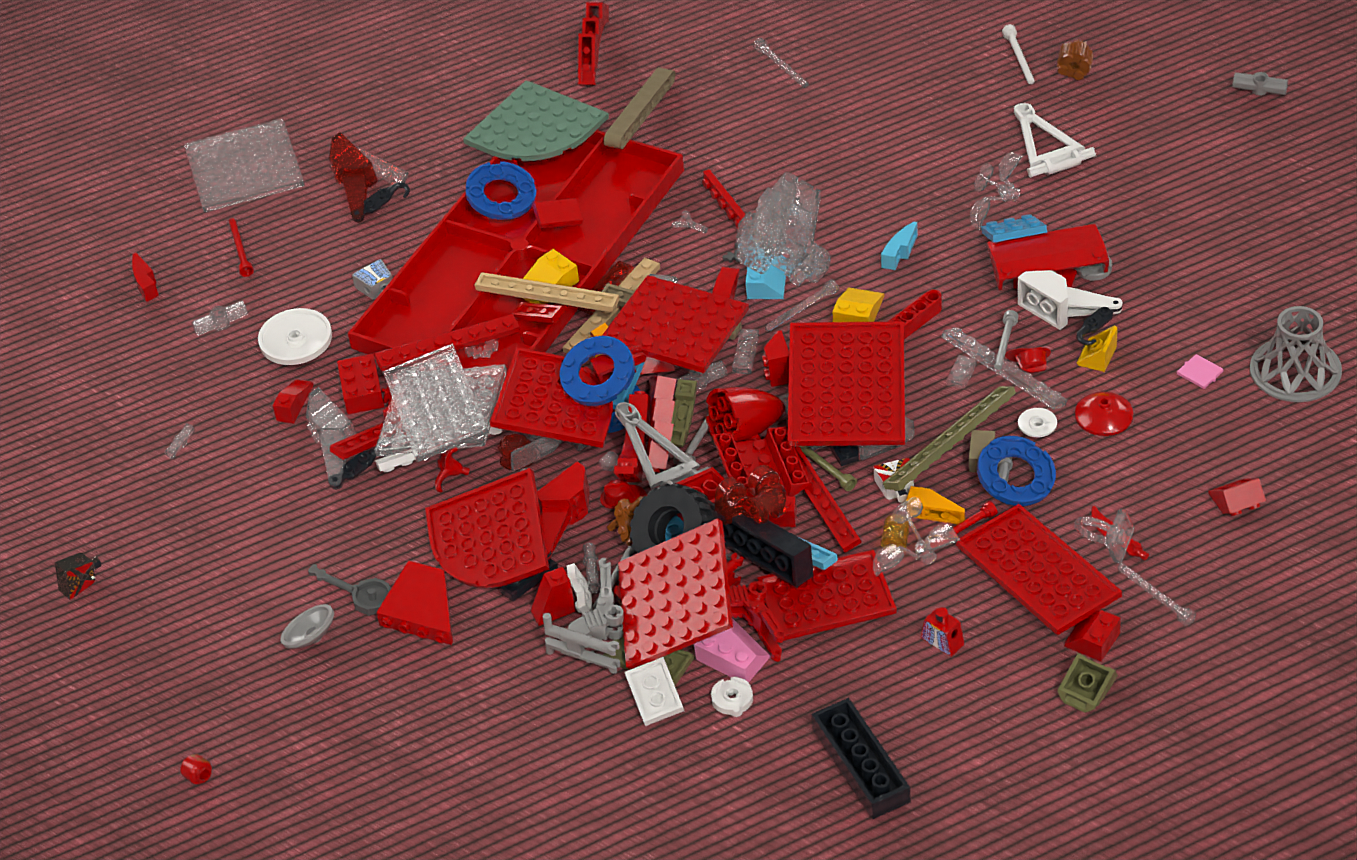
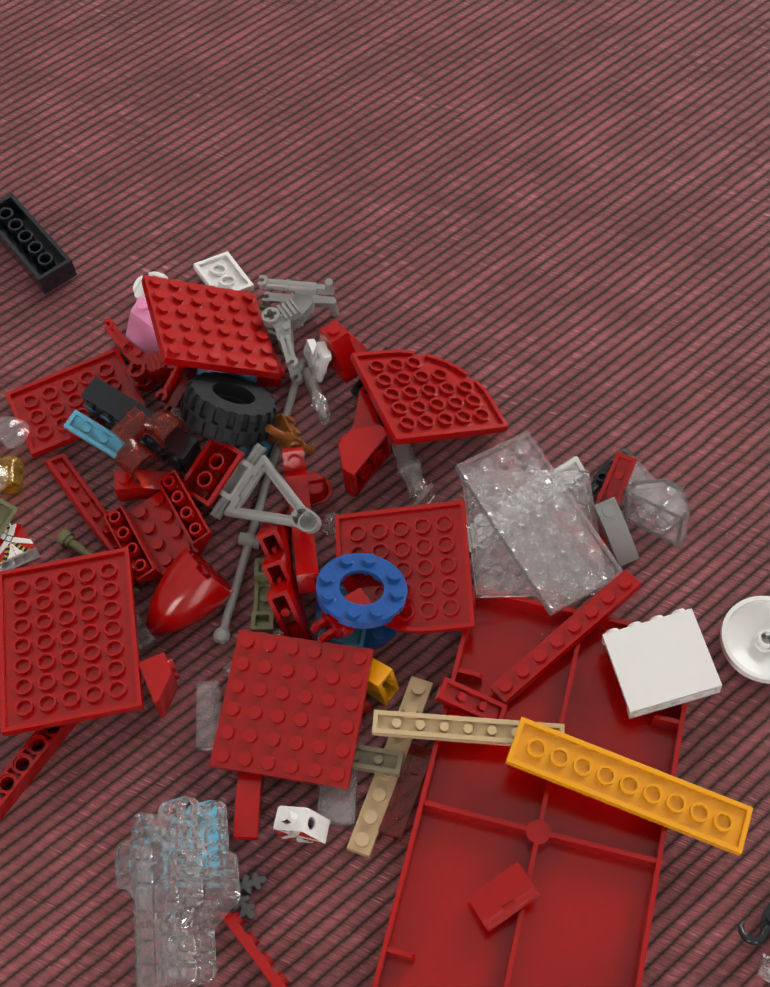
camera: 165 degrees right, 15 degrees up
(196, 769) = (608, 152): red head -> none
(291, 400) = (725, 556): red slope -> none
(308, 627) = (571, 282): light grey dish -> none
(360, 384) = (661, 585): red brick -> none
(366, 595) = (529, 336): dark grey piece -> none
(372, 279) = (711, 756): torso -> none
(373, 418) = (616, 531): none -> light grey slope
(385, 312) = (661, 662): none -> white panel
(418, 604) = (473, 330): red slope -> none
(447, 247) = (630, 786): none -> light orange plate
(489, 347) = (517, 653): clear animal -> none
(504, 171) = (606, 968): blue plate -> none
(553, 269) = (478, 775): yellow slope -> none
(689, 223) = (324, 940): clear piece -> none
(689, 267) = (292, 825): none -> white torso
(829, 288) = (115, 834): clear piece -> none
(857, 306) = (74, 804): yellow slope -> none
(899, 246) = (25, 926): medium azure slope -> none

